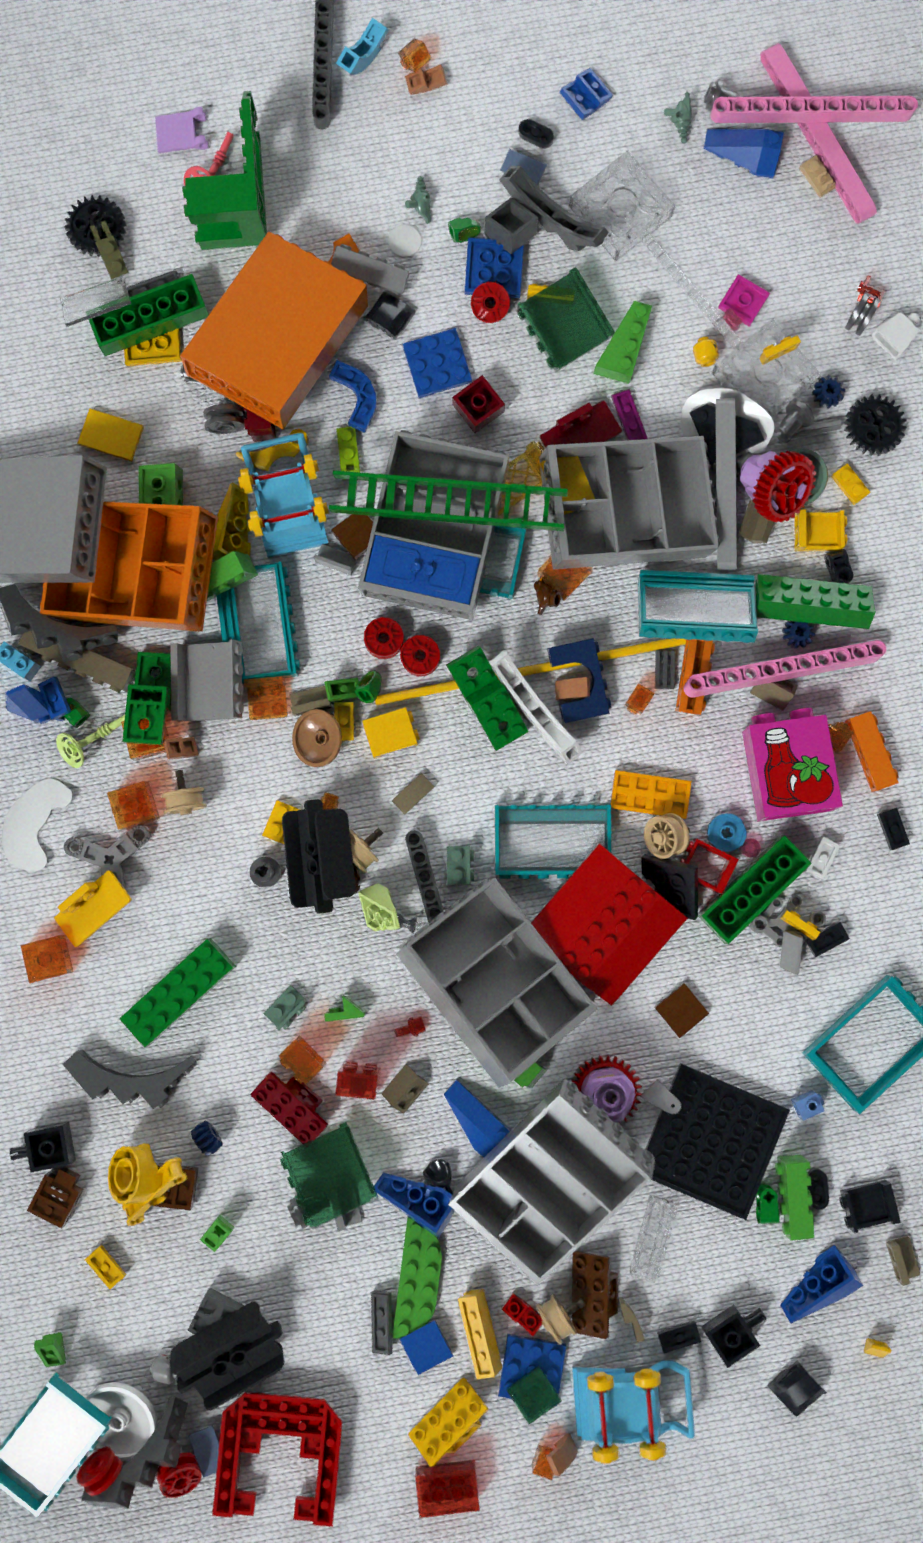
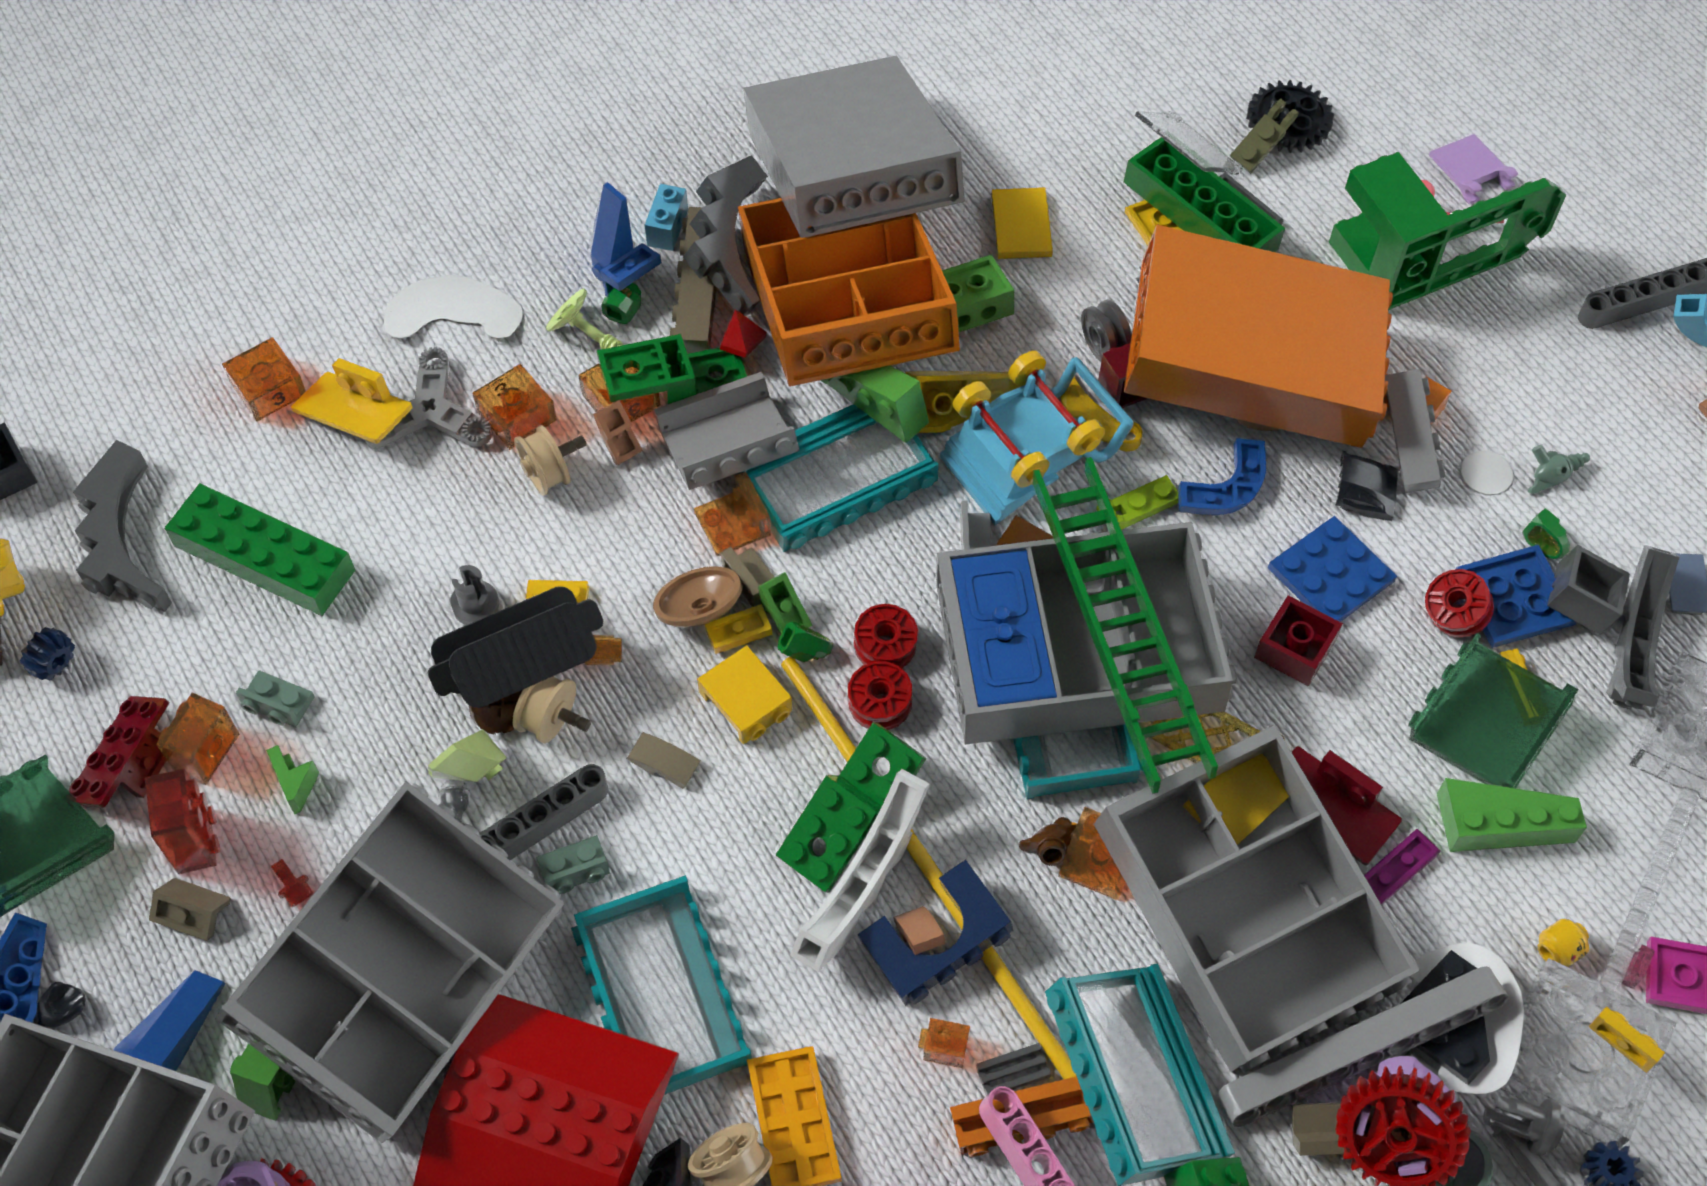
camera: 70 degrees right, 25 degrees down
(136, 646) = (742, 335): none -> red slope

